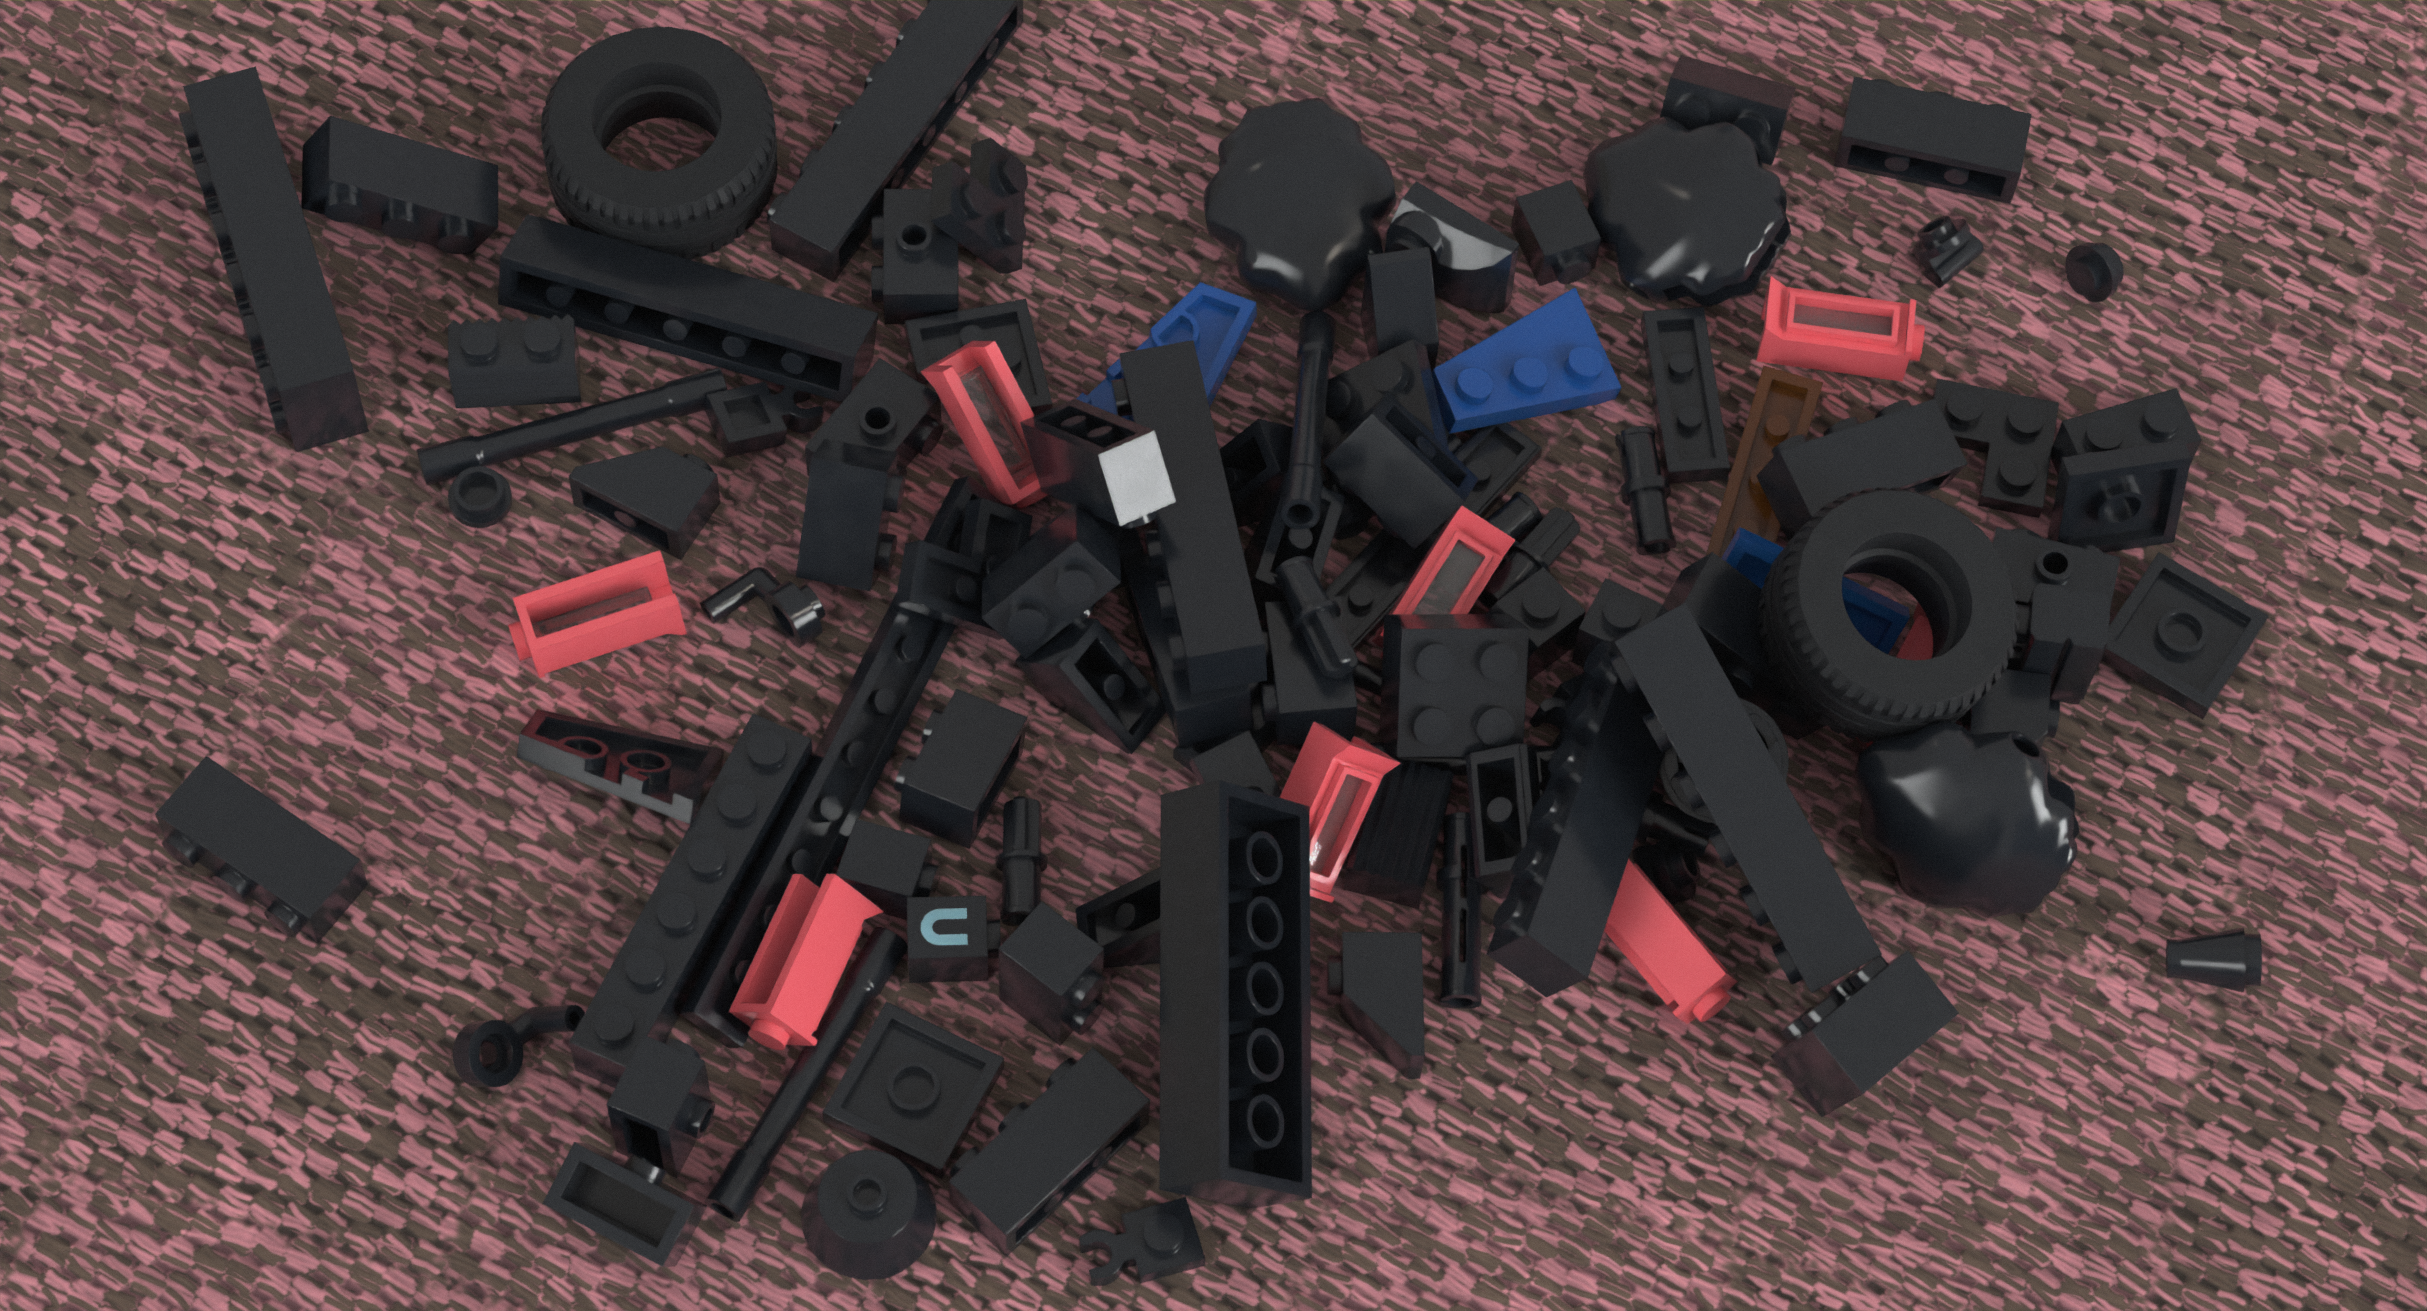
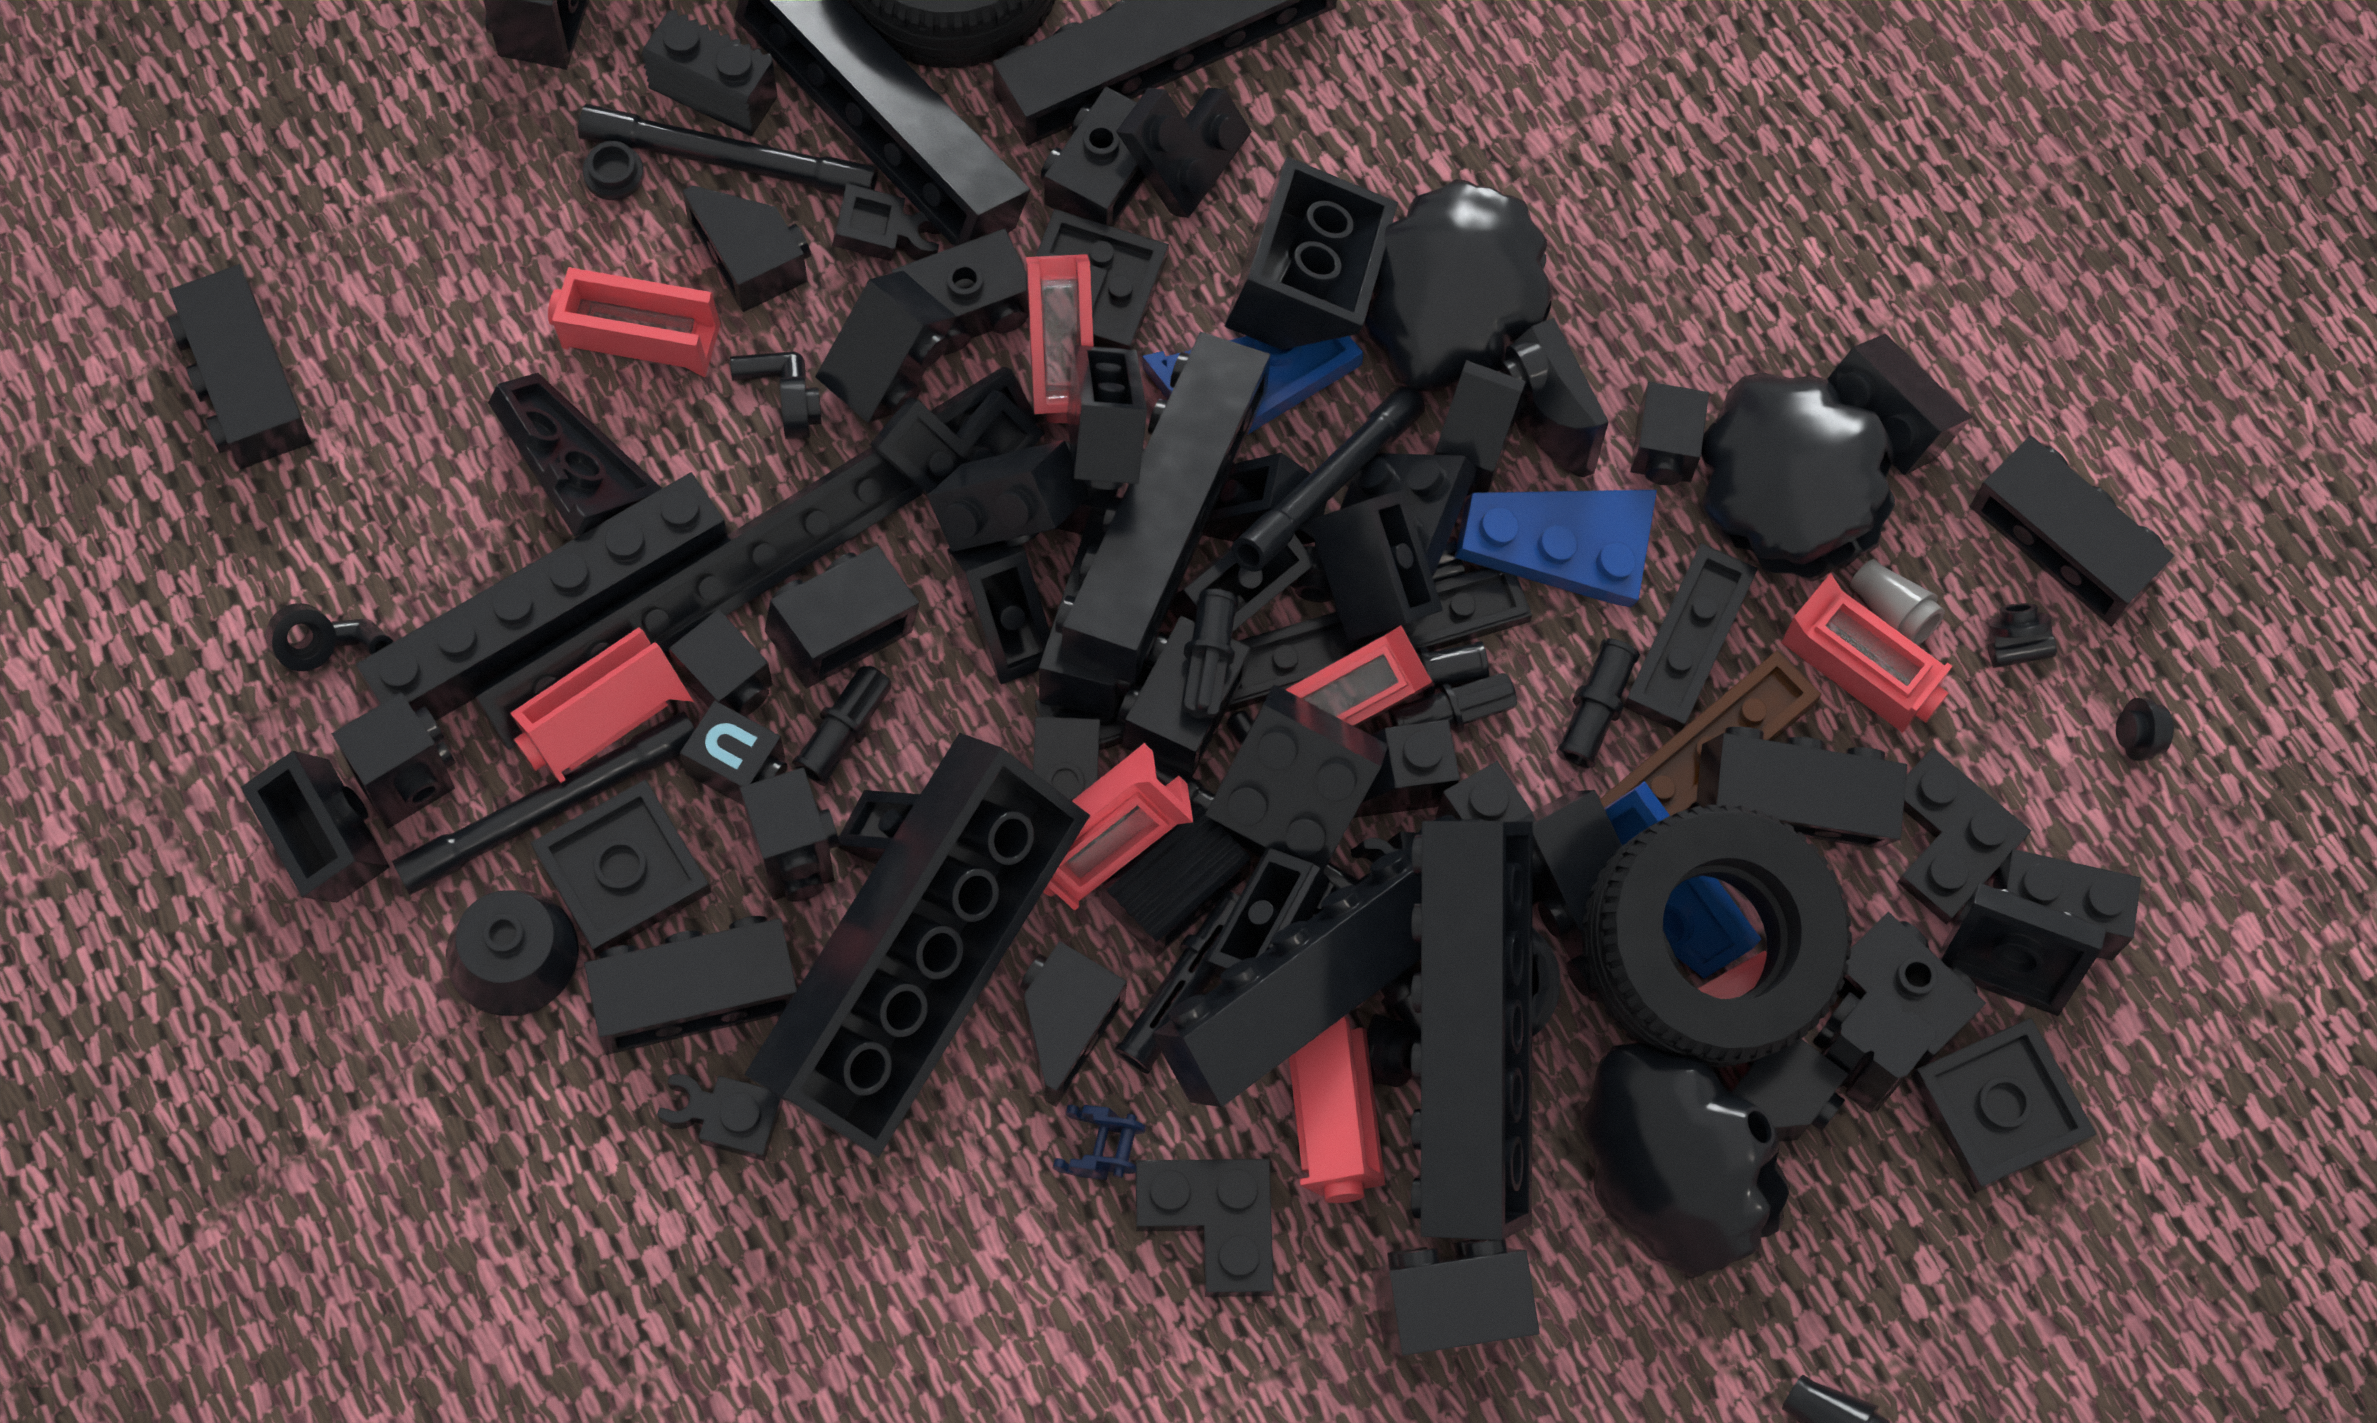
camera: 30 degrees right, 5 degrees up
(1164, 245) = (1311, 259): none -> black slope
(1489, 1103) = (1096, 1165): none -> dark blue piece
(1618, 1073) = (1225, 1202): none -> black plate
(1831, 271) = (1898, 601): none -> light grey cone

